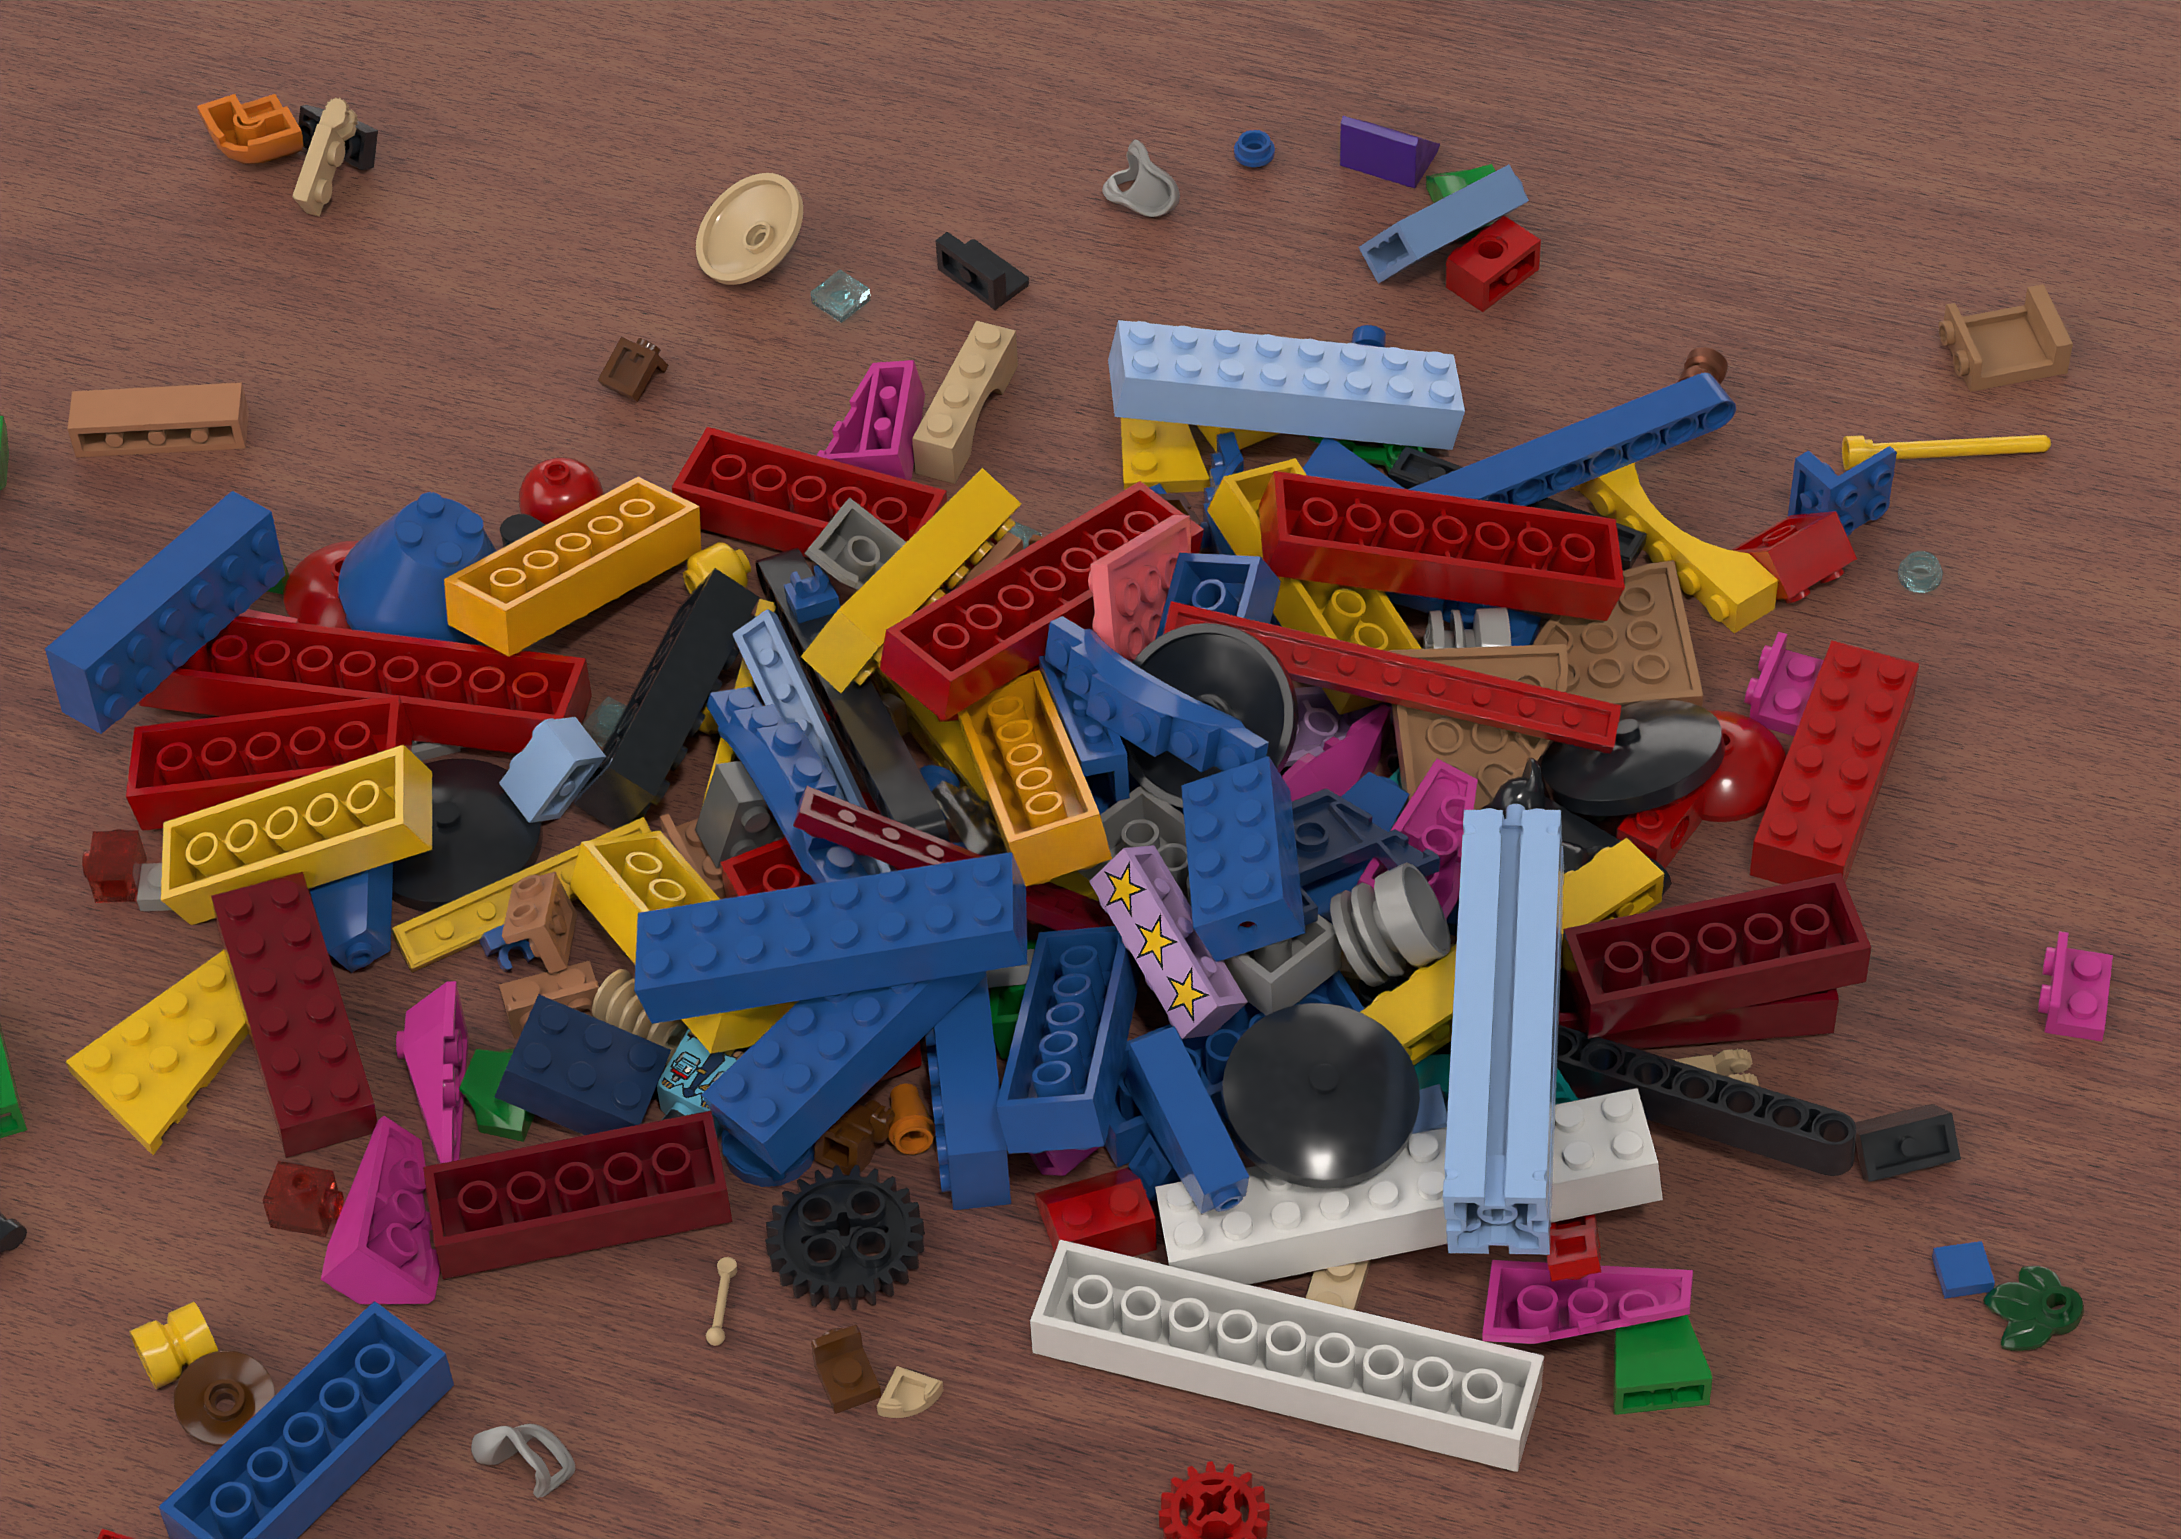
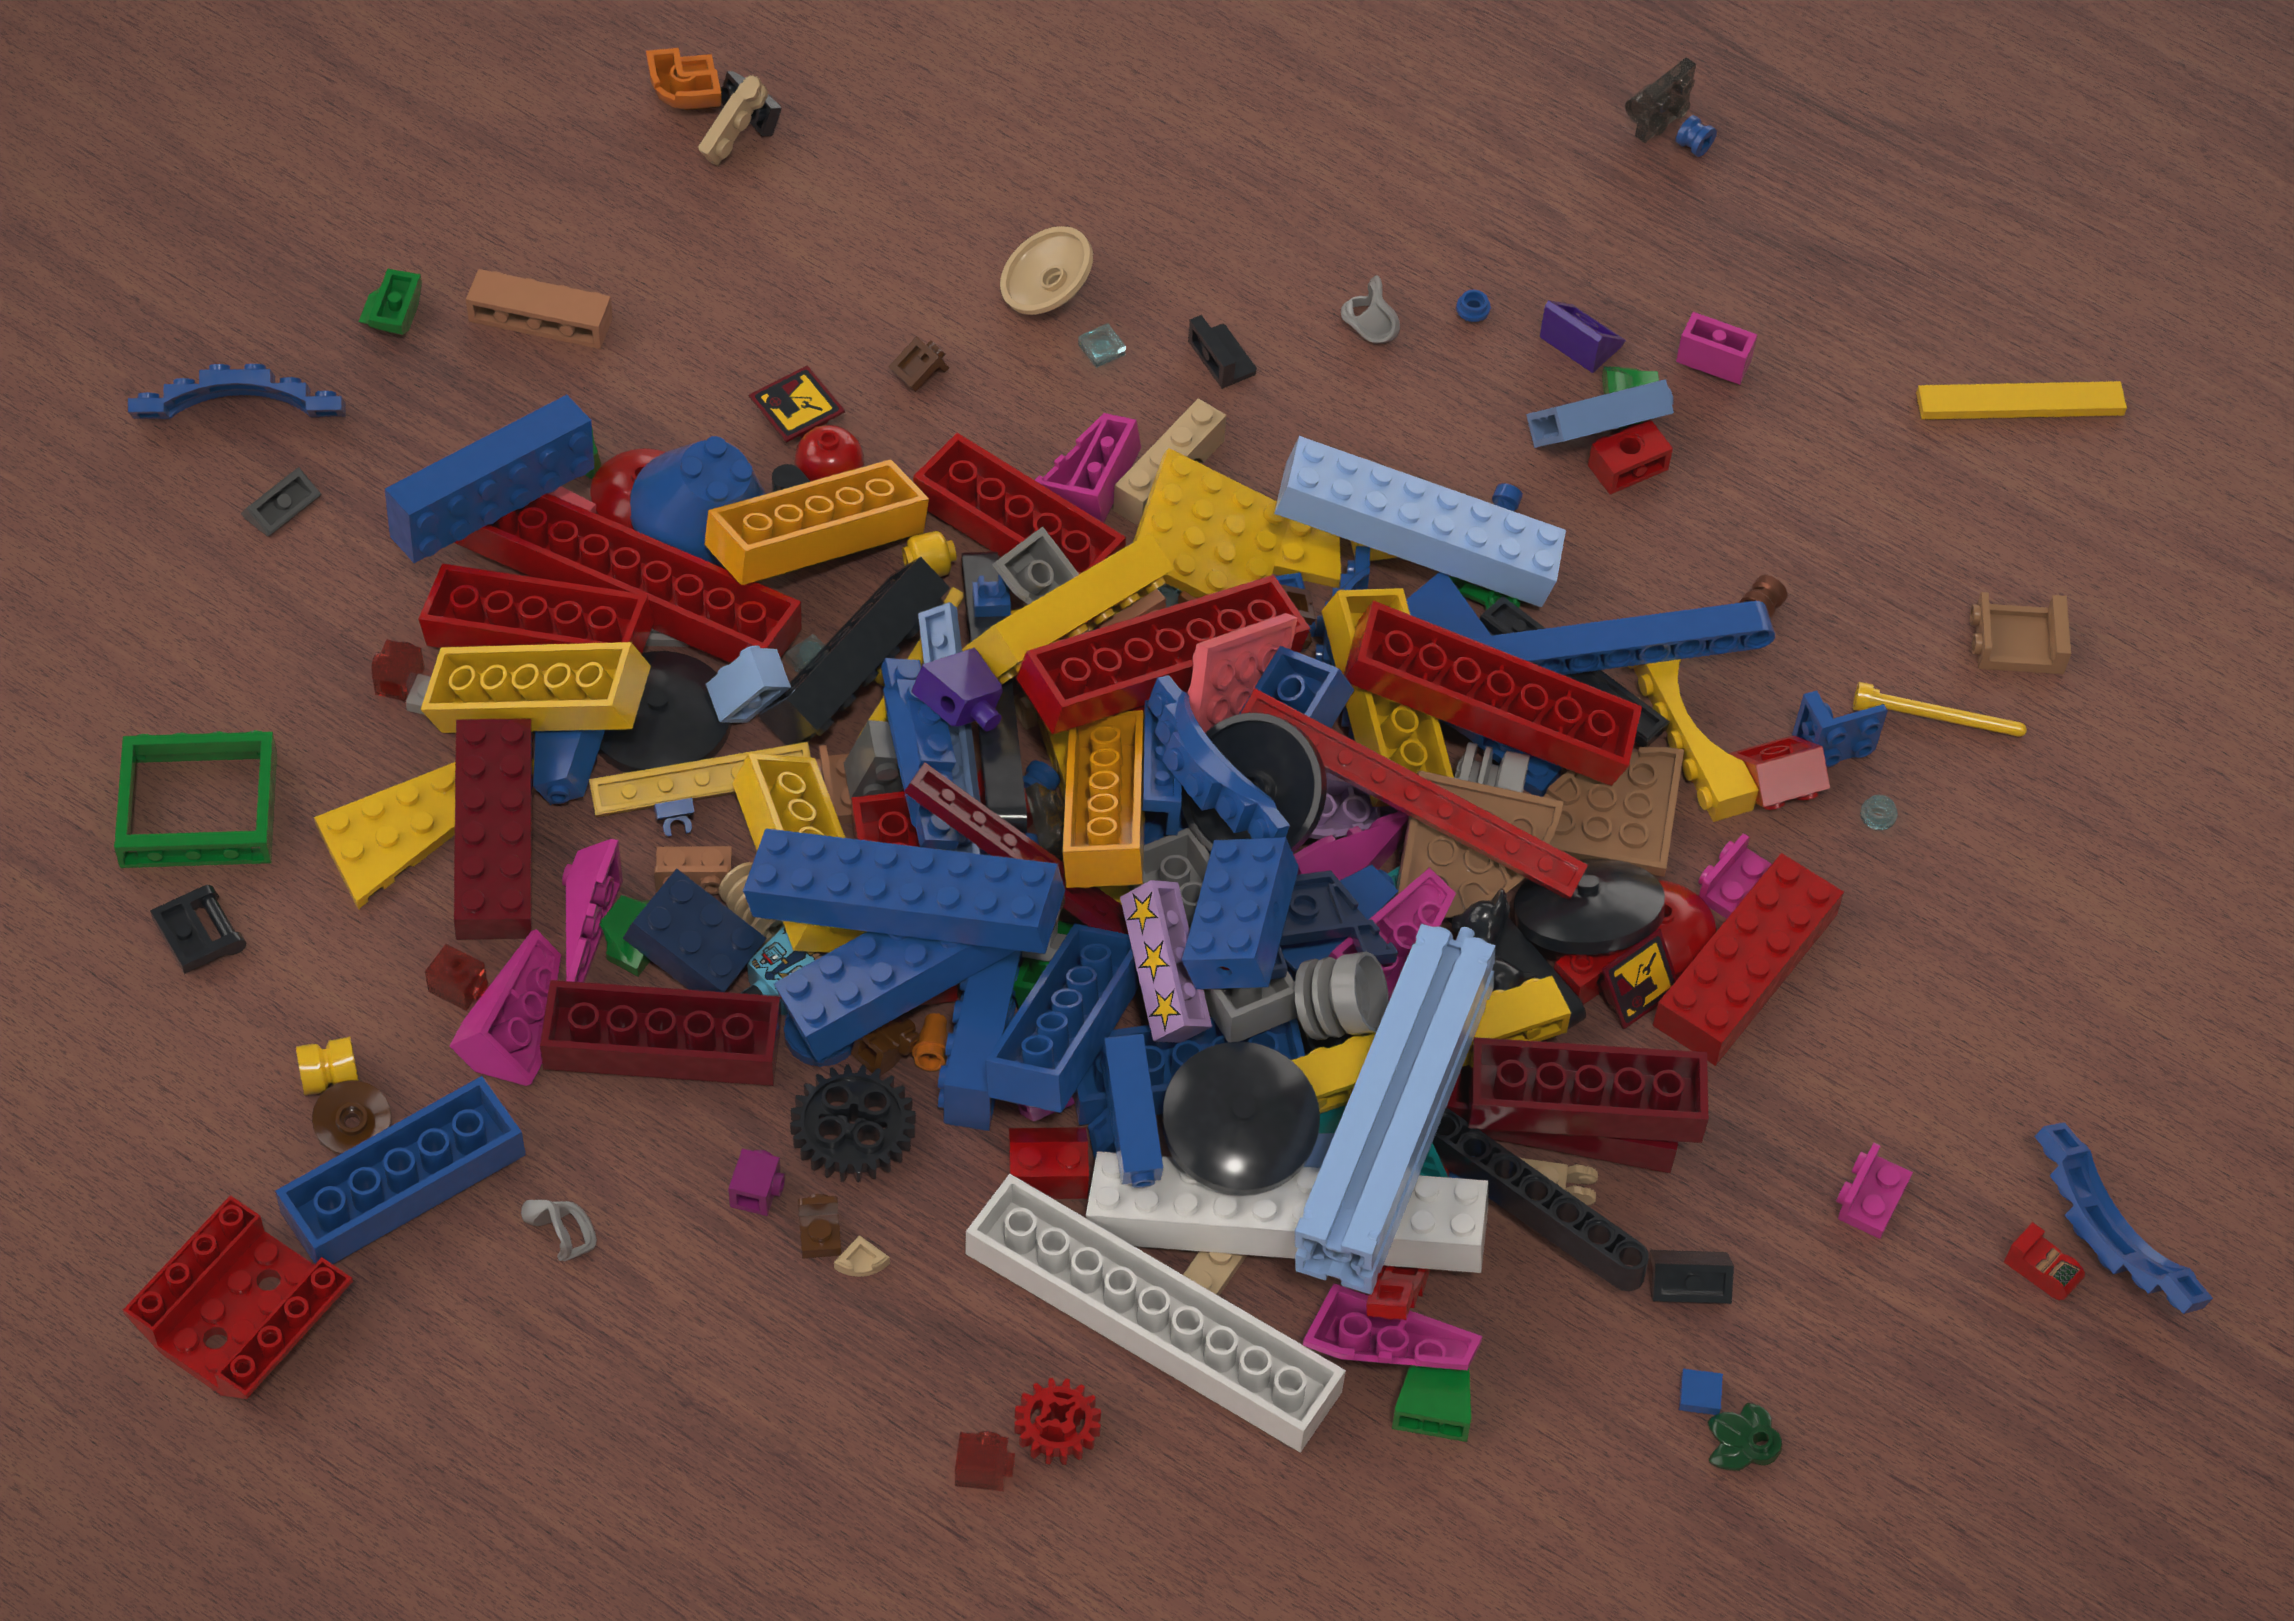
camera: 10 degrees right, 5 degrees up
(502, 447) = (796, 404): none -> piece
(543, 914) = (705, 803): nougat bracket -> none
(726, 1269) = (758, 1121): tan hinge -> none
(750, 1337) = (756, 1181): none -> magenta brick
(817, 699) = (960, 689): none -> dark purple torso
(1042, 452) = (1210, 527): none -> yellow plate
(1548, 123) = (1716, 348): none -> dark pink brick
(1719, 823) = (1638, 978): none -> piece
(1907, 97) = (2021, 400): none -> yellow tile

